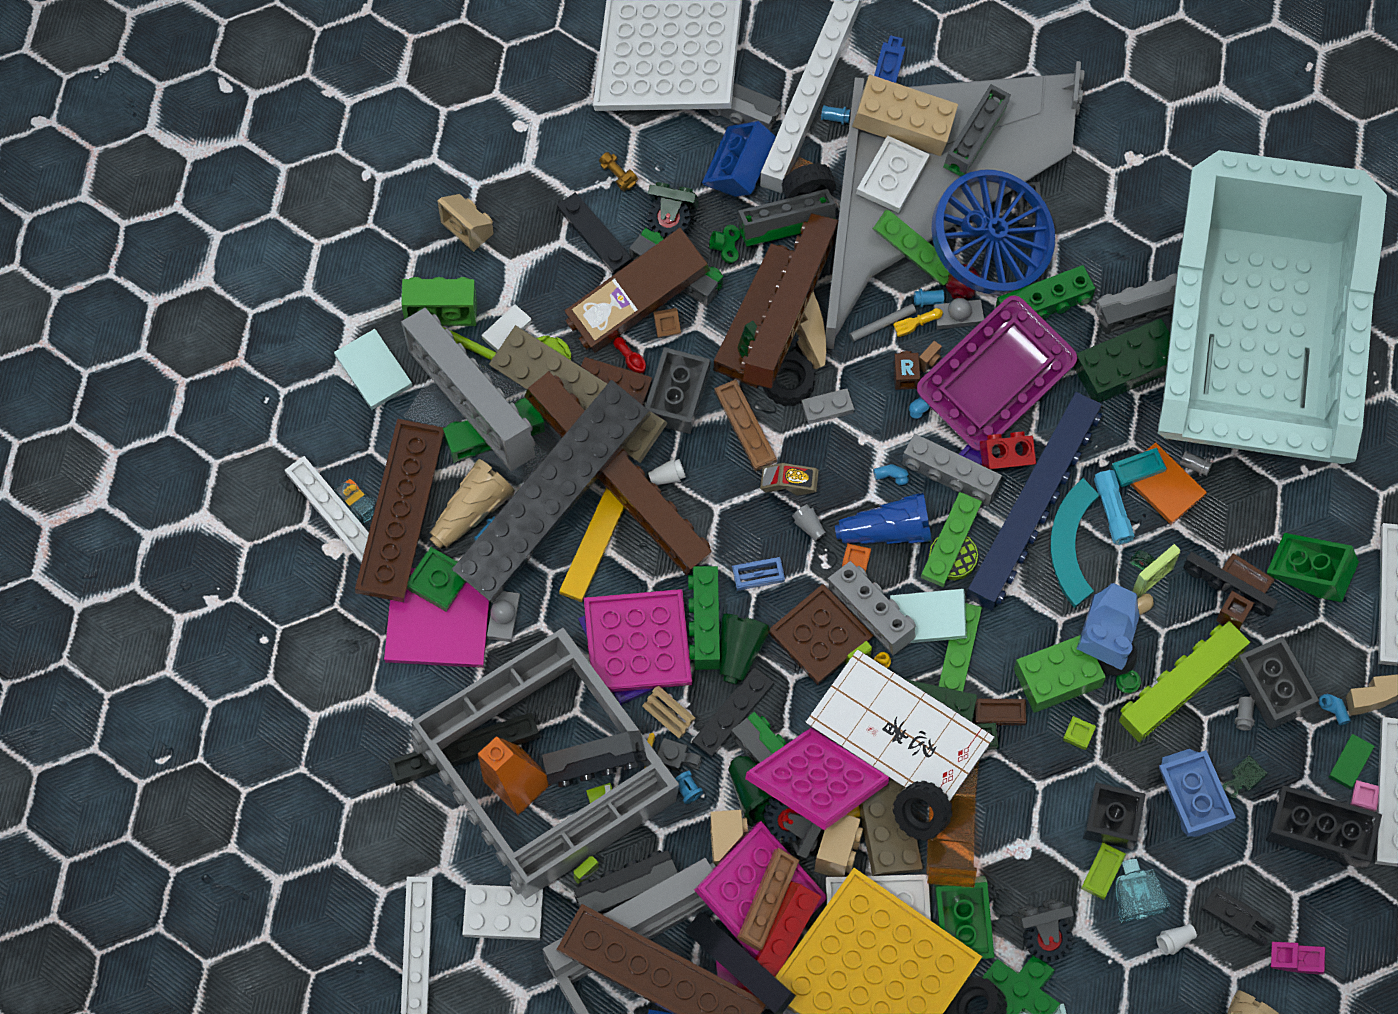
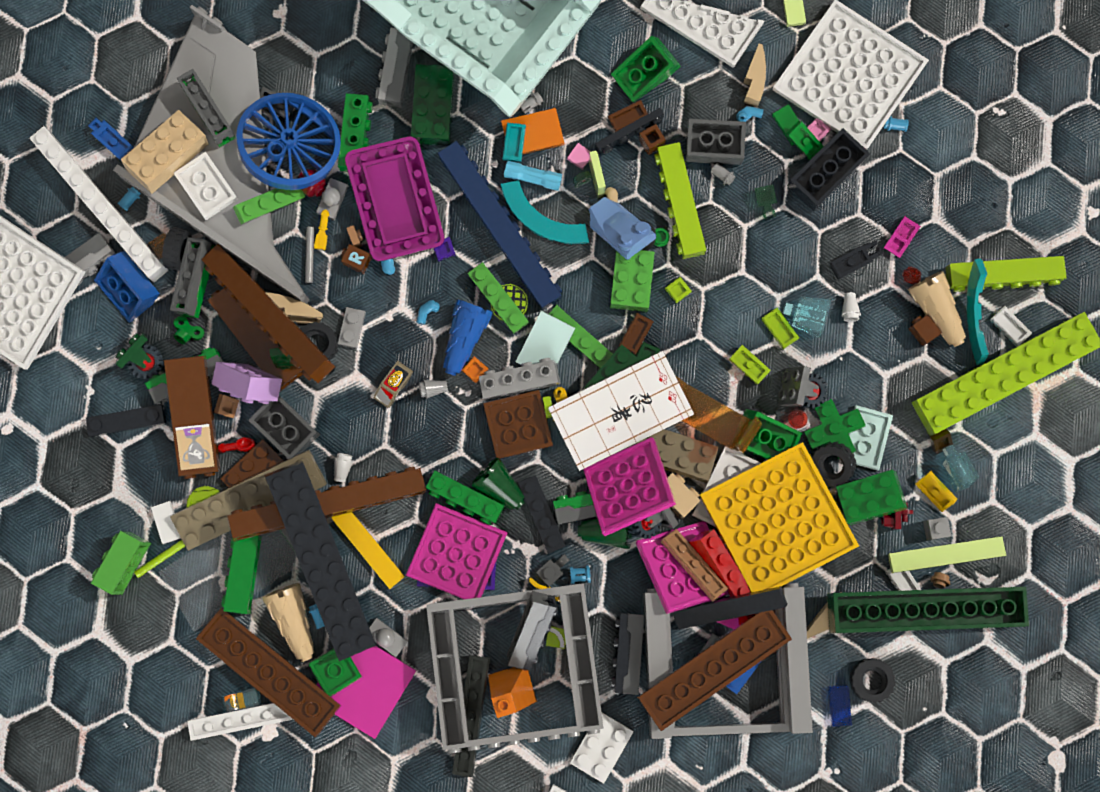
camera: 60 degrees left, 15 degrees up
(373, 369) = (144, 635): light aqua tile -> none
(465, 220) = (64, 510): tan slope -> none
(469, 388) = (205, 578): light grey brick -> none
(586, 869) = (603, 675): lime tile -> none
(625, 180) = (96, 376): pearl gold bar -> none
(667, 715) = (519, 561): tan tile -> none
(703, 322) = (246, 382): none -> lavender brick
(726, 831) = (633, 568): tan slope -> none
(745, 425) = (334, 392): medium nougat tile -> none
(759, 582) = (445, 458): medium blue tile -> none
(908, 820) = (681, 417): black tyre -> none
(928, 297) = (308, 213): dark azure pin -> none
(951, 469) = (447, 269): light grey brick -> none
(1007, 944) = (797, 419): none -> clear red plate
(1008, 455) = (459, 226): red brick -> none
(1039, 856) = (749, 365): none -> lime plate
(1114, 816) = (750, 300): black brick -> none
(1164, 542) = (579, 156): none -> bright pink tile
(1196, 792) = (759, 237): medium blue slope -> none
(1259, 990) = (912, 275): none -> clear red plate
(1342, 780) = (804, 140): none -> green plate

